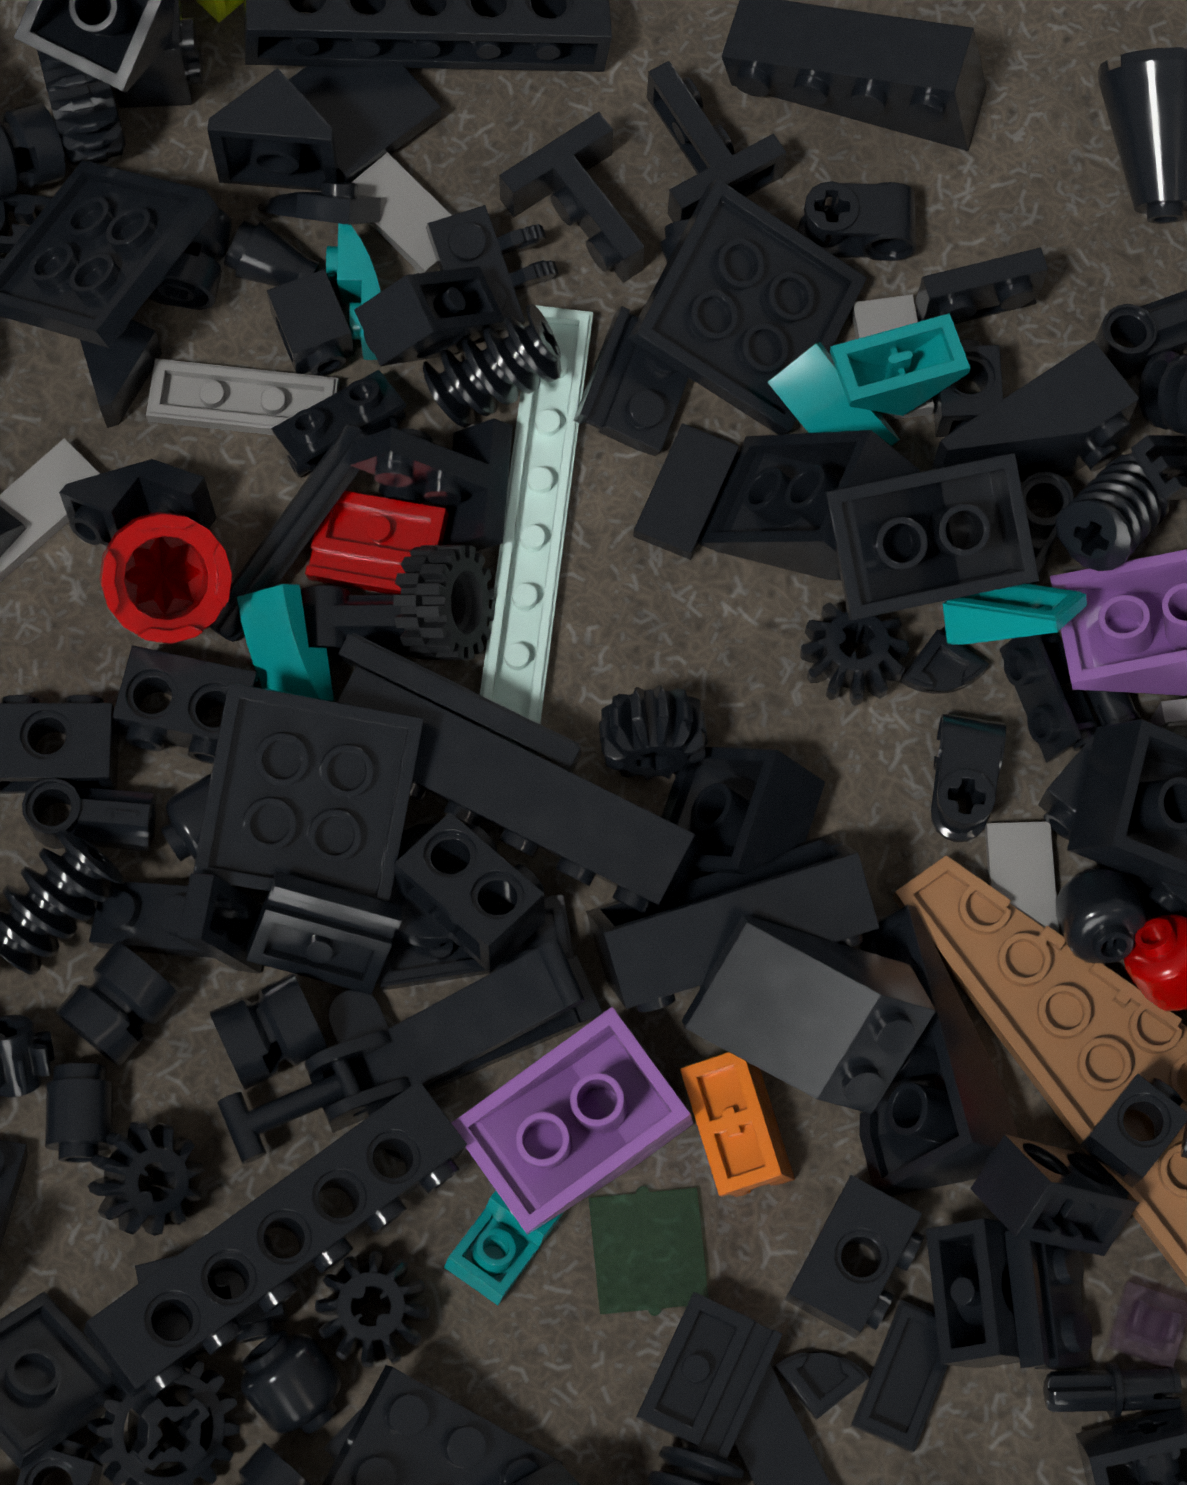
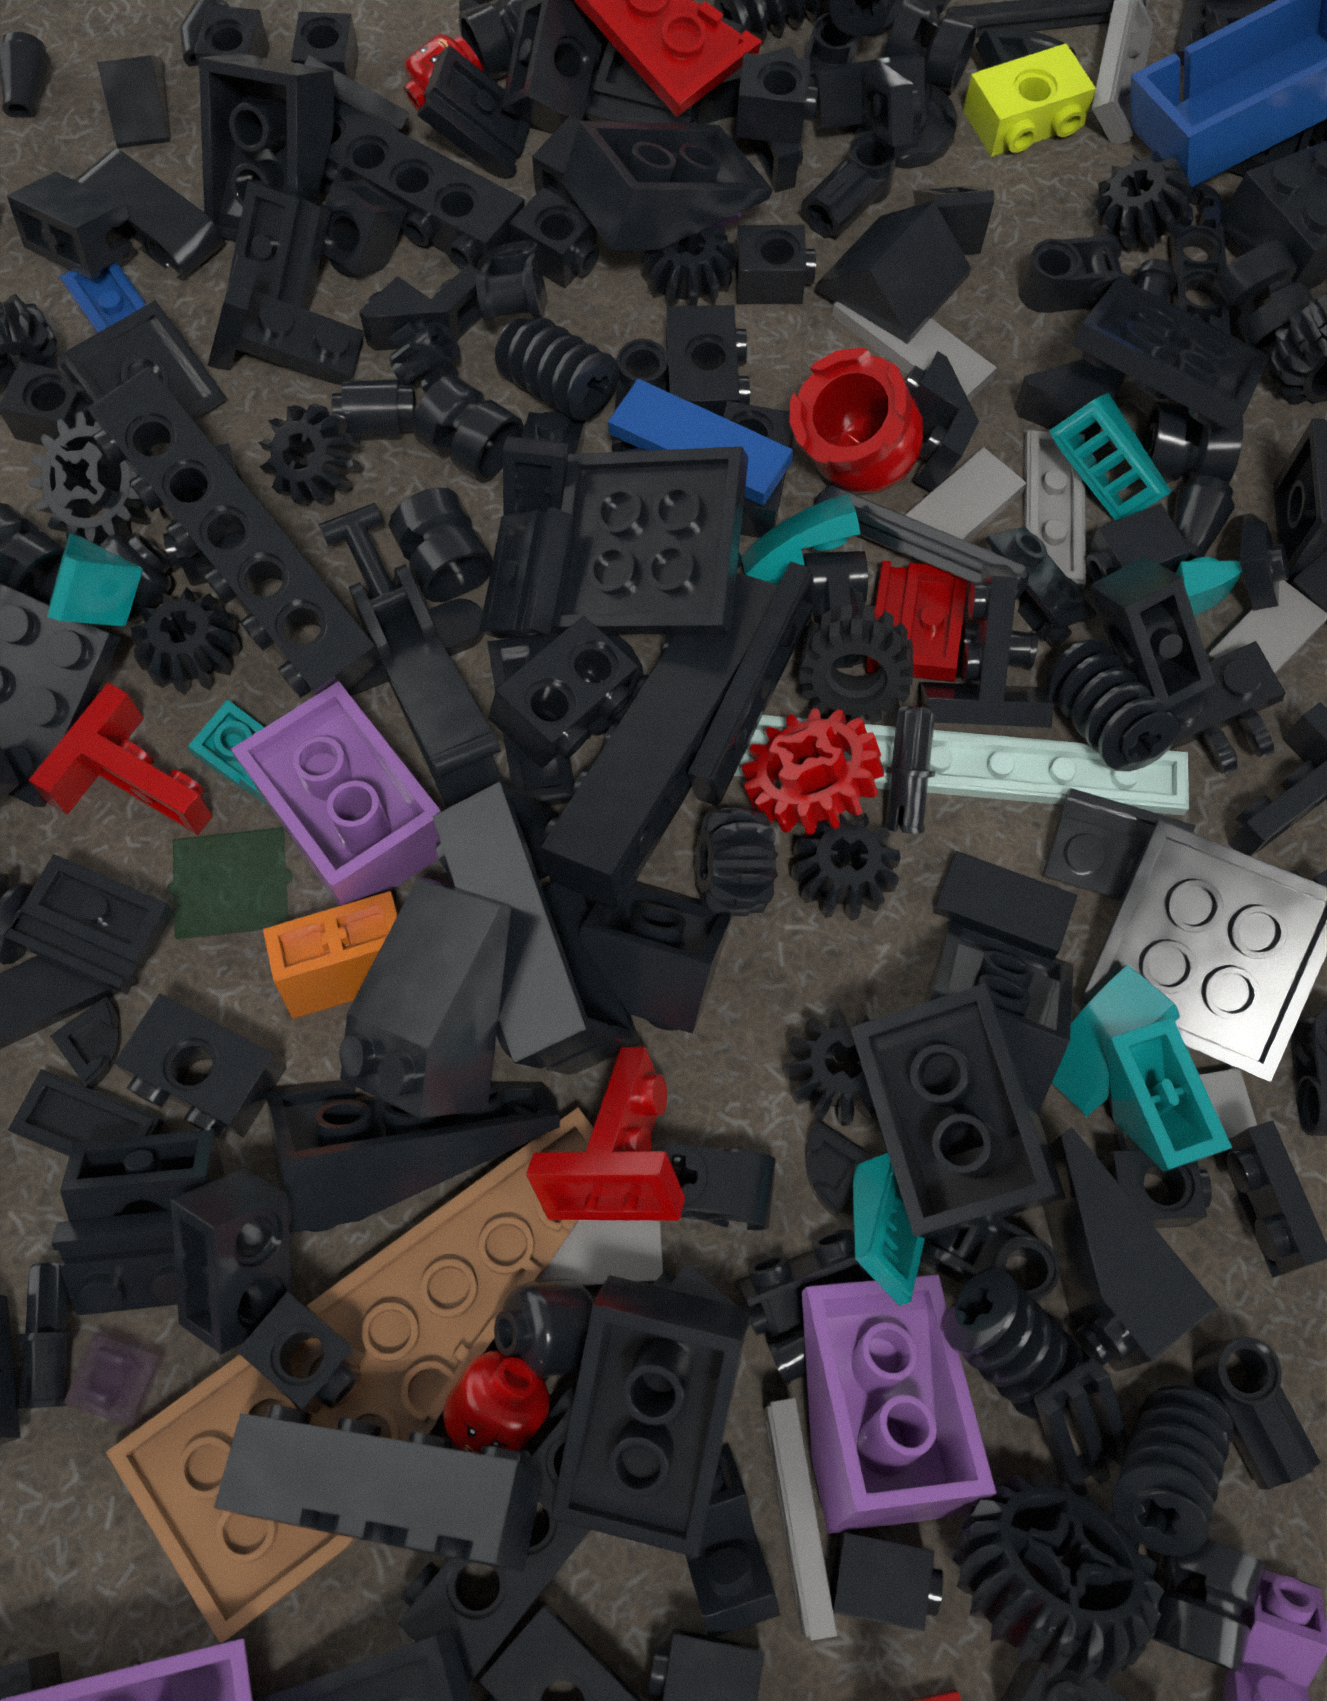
camera: 90 degrees right, 5 degrees down
(163, 333) = (1117, 429): none -> teal slope
(168, 746) = (667, 422): none -> blue tile
(239, 492) = (970, 496): none -> light grey tile
(331, 1388) = (93, 585): none -> teal slope
(522, 1364) = (101, 748): none -> red bracket
(539, 640) = (813, 770): none -> red gear
(555, 562) = (910, 769): none -> black axle
(623, 639) = (846, 885): none -> black gear
(978, 844) = (618, 1171): none -> red bracket

